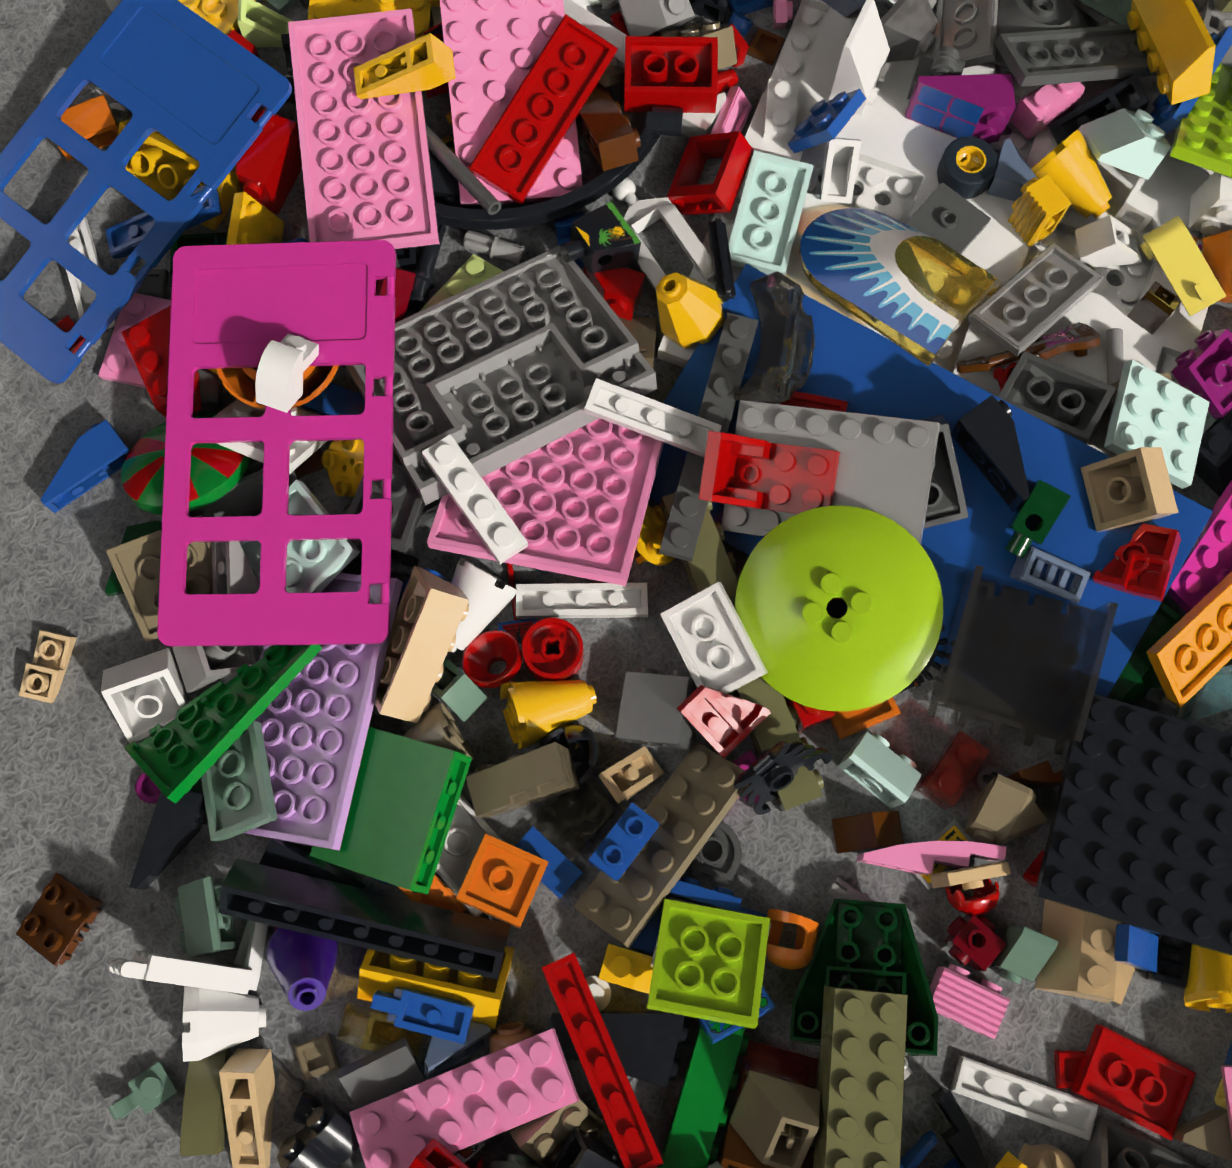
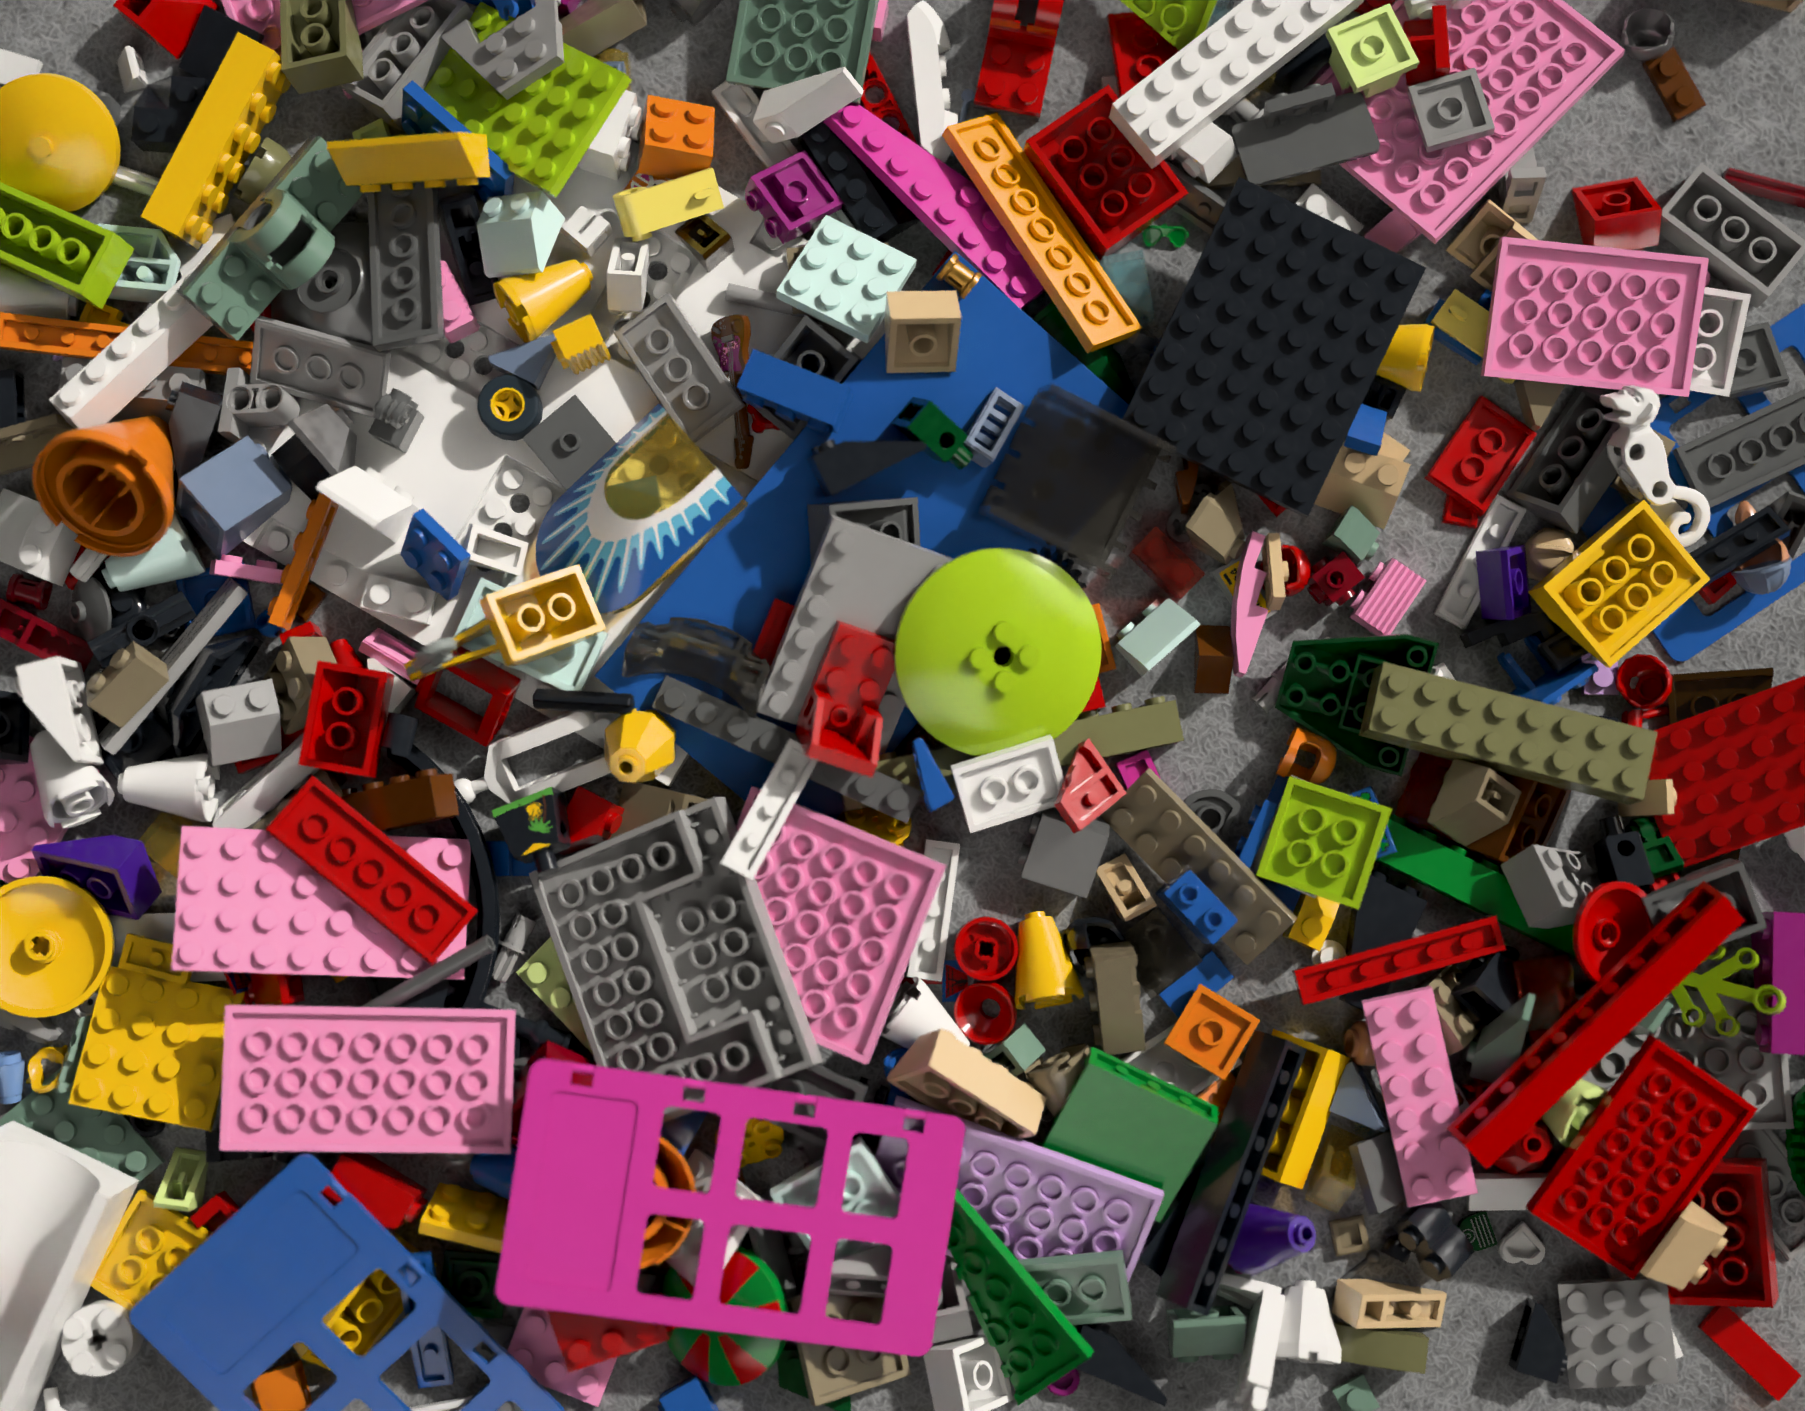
camera: 85 degrees left, 10 degrees up
(281, 371) = (666, 1193): white brick -> none
(406, 69) = (311, 1022): yellow slope -> none
(425, 1013) = (1329, 1123): blue hinge -> none
(474, 499) = (833, 1008): white plate -> none
(700, 568) = (933, 785): none -> blue slope
(775, 771) = (1149, 743): black animal -> none
(782, 189) = (525, 621): none -> yellow slope
(793, 28) = (298, 573): none -> orange plate
(964, 104) = (443, 392): magenta slope -> none
(1011, 1125) = (1503, 582): none -> dark purple slope
(1043, 386) = (794, 392): none -> blue brick
(1143, 563) = (997, 333): red slope -> none
(1191, 515) = (959, 276): none -> pearl gold bush

